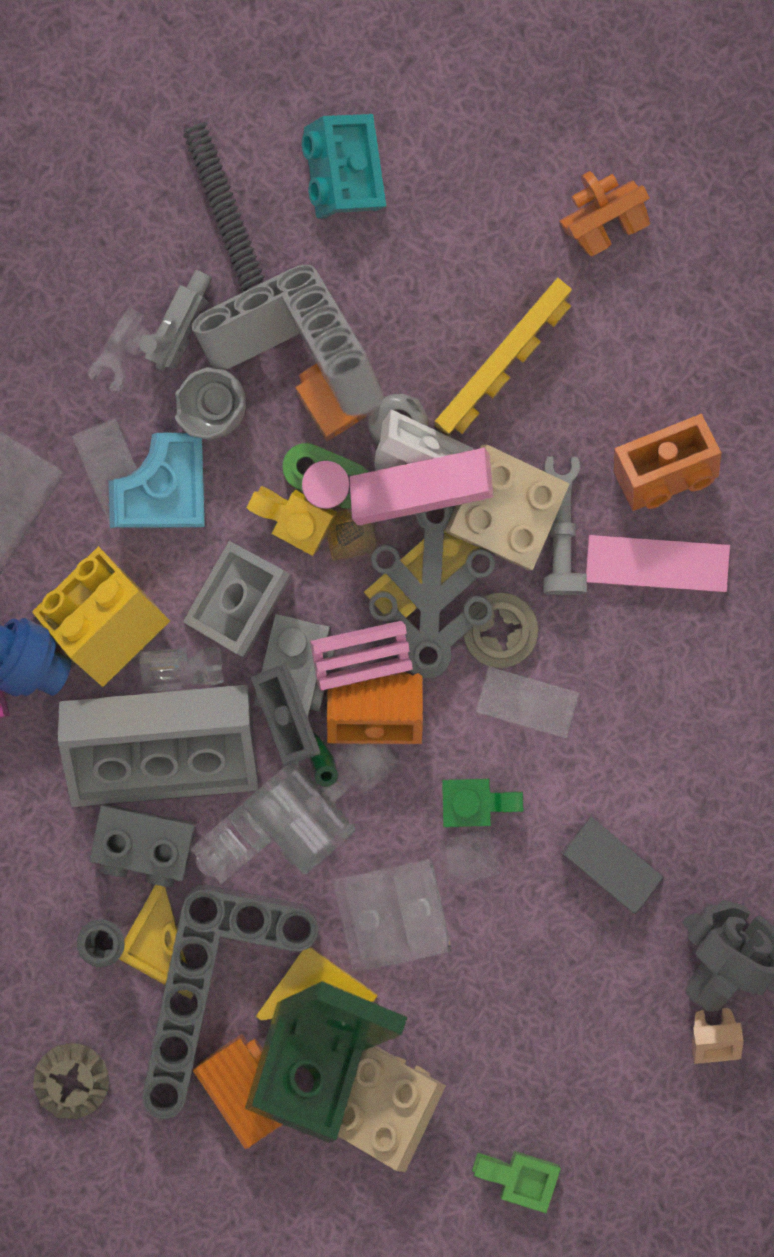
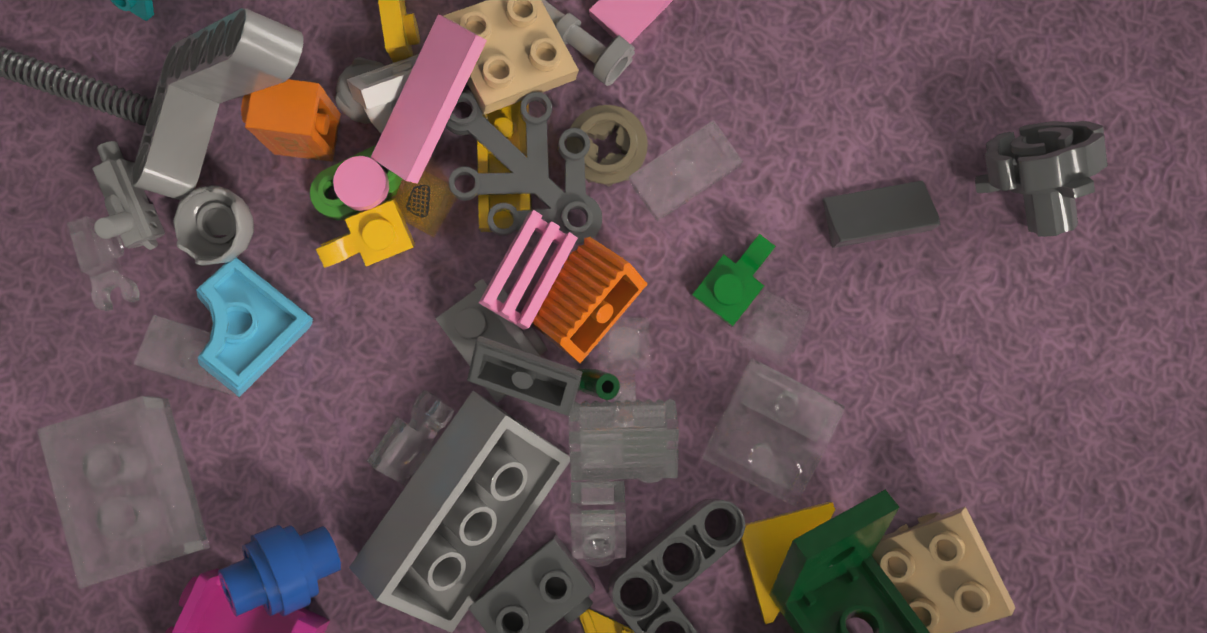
camera: 50 degrees left, 5 degrees down
(100, 616) = (310, 469): yellow slope -> none
(237, 599) = (396, 338): light grey slope -> none
(524, 1181) = (1096, 507): bright green plate -> none
(716, 1042) = (1104, 245): light nougat tile -> none

